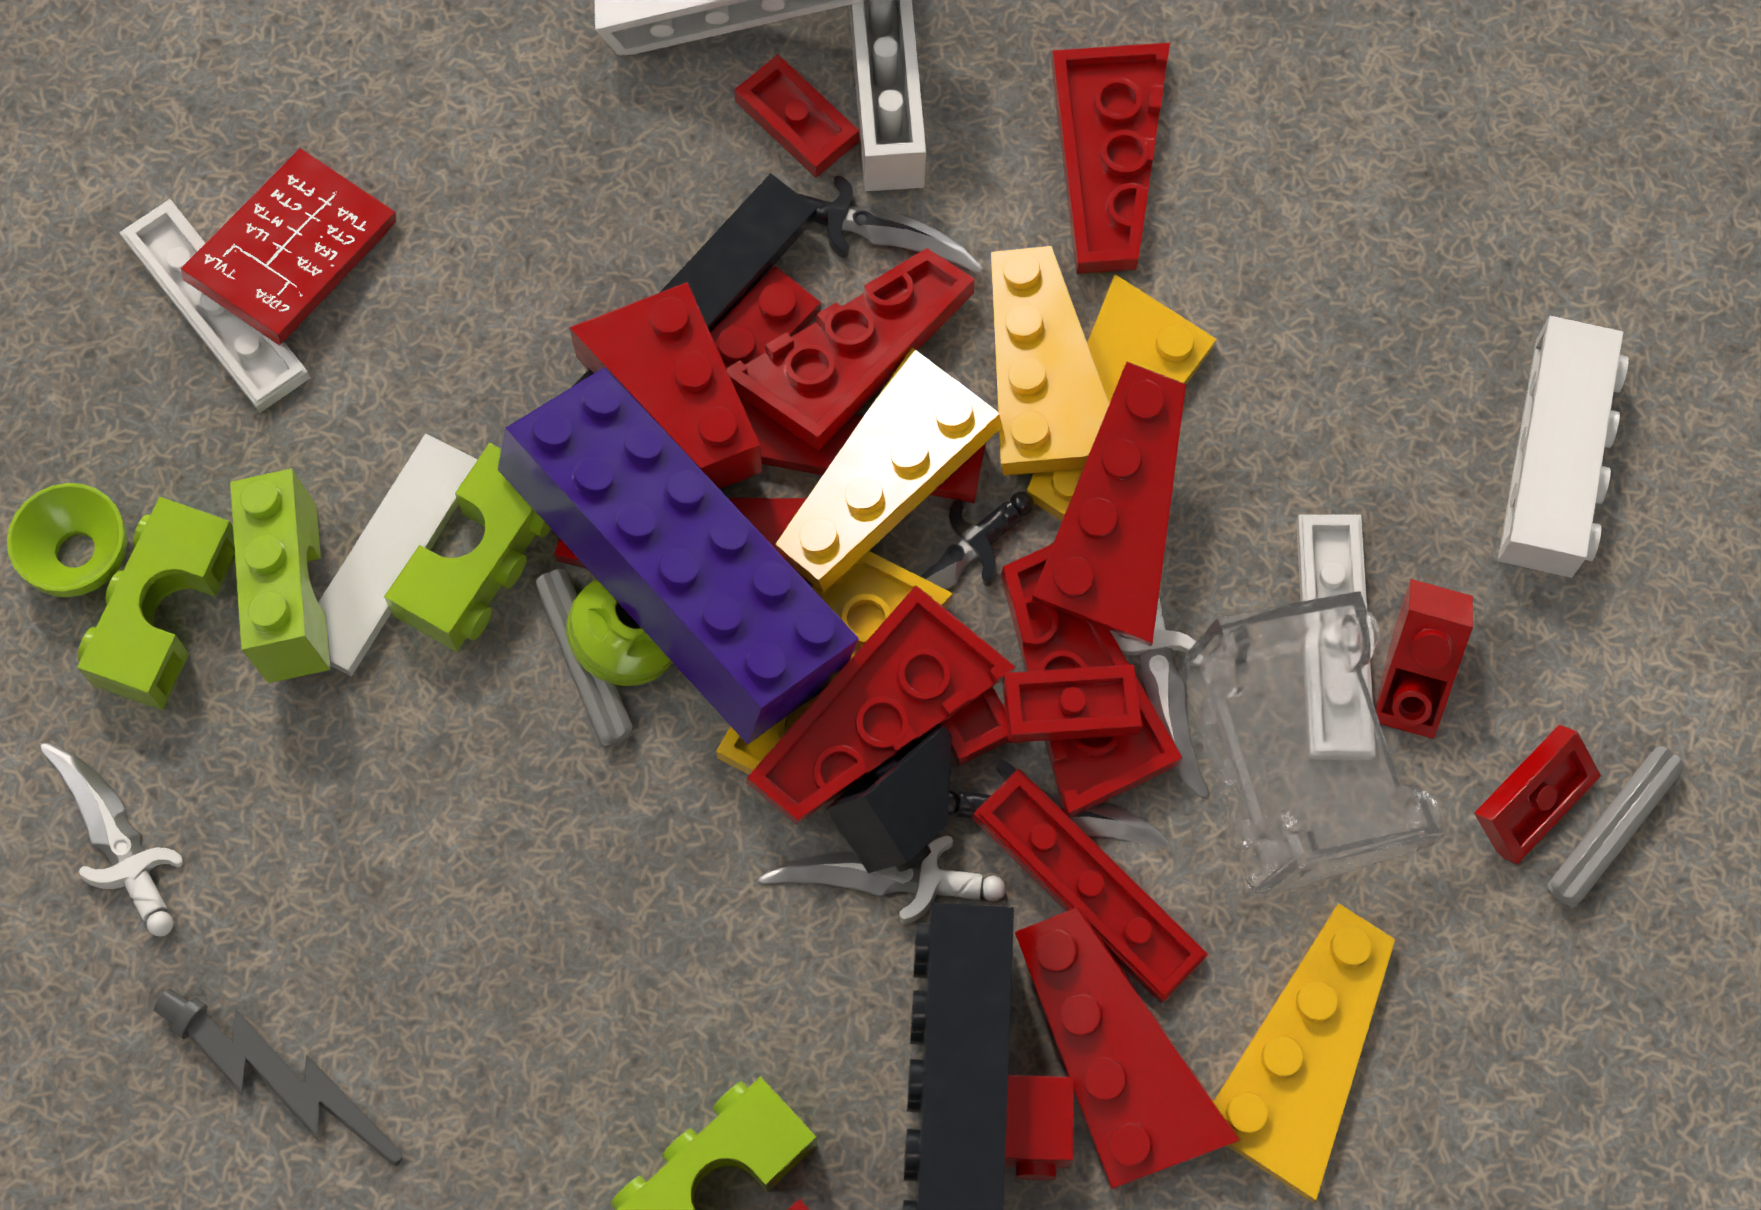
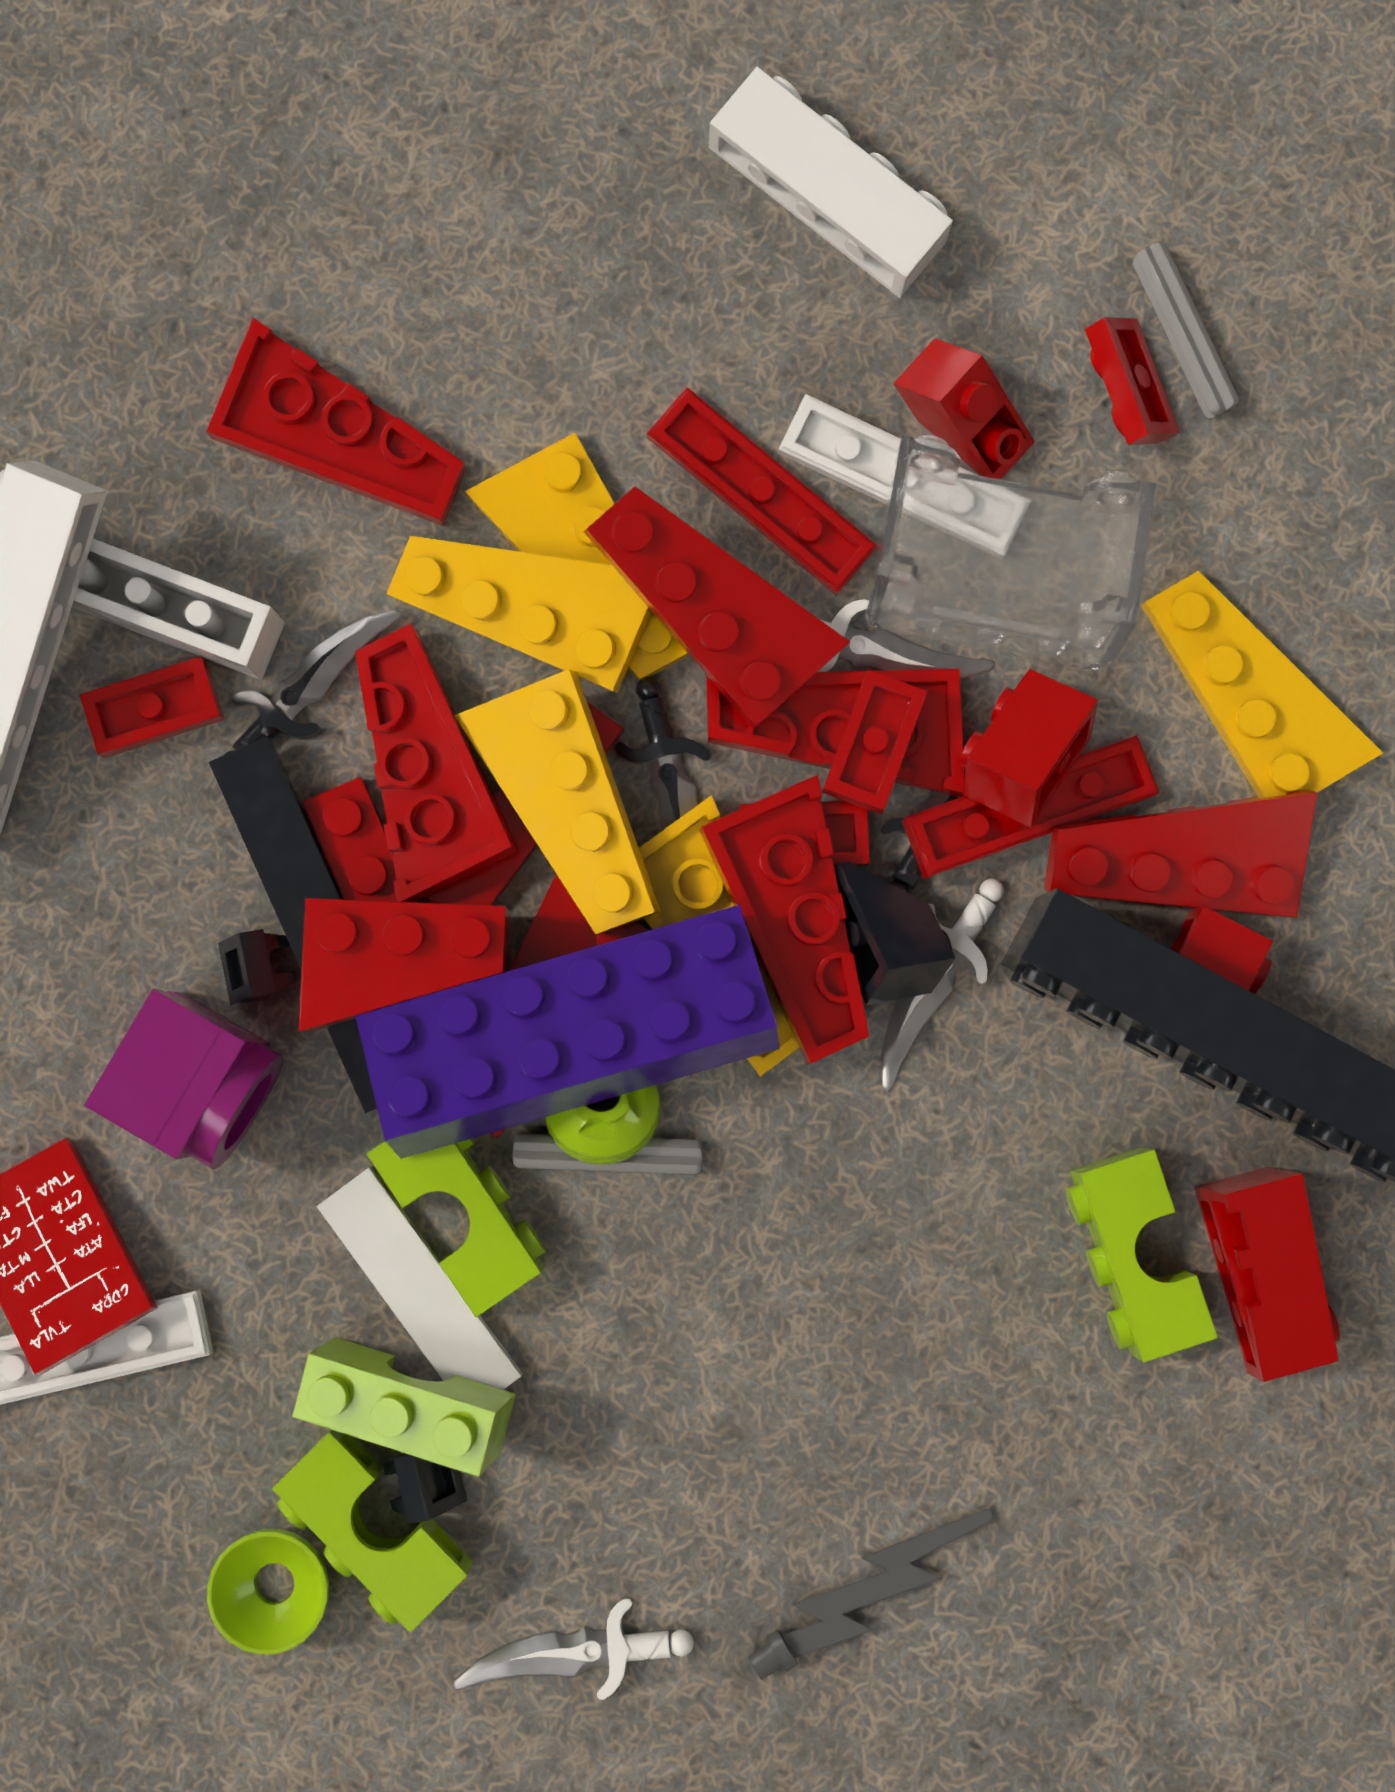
camera: 70 degrees left, 15 degrees up
(215, 632) = (424, 1487): none -> black tile
(488, 271) = (186, 1079): none -> magenta piece
(620, 278) = (249, 968): none -> black tile
(1139, 846) = (1028, 746): none -> red brick
(1253, 511) = (761, 491): none -> red tile

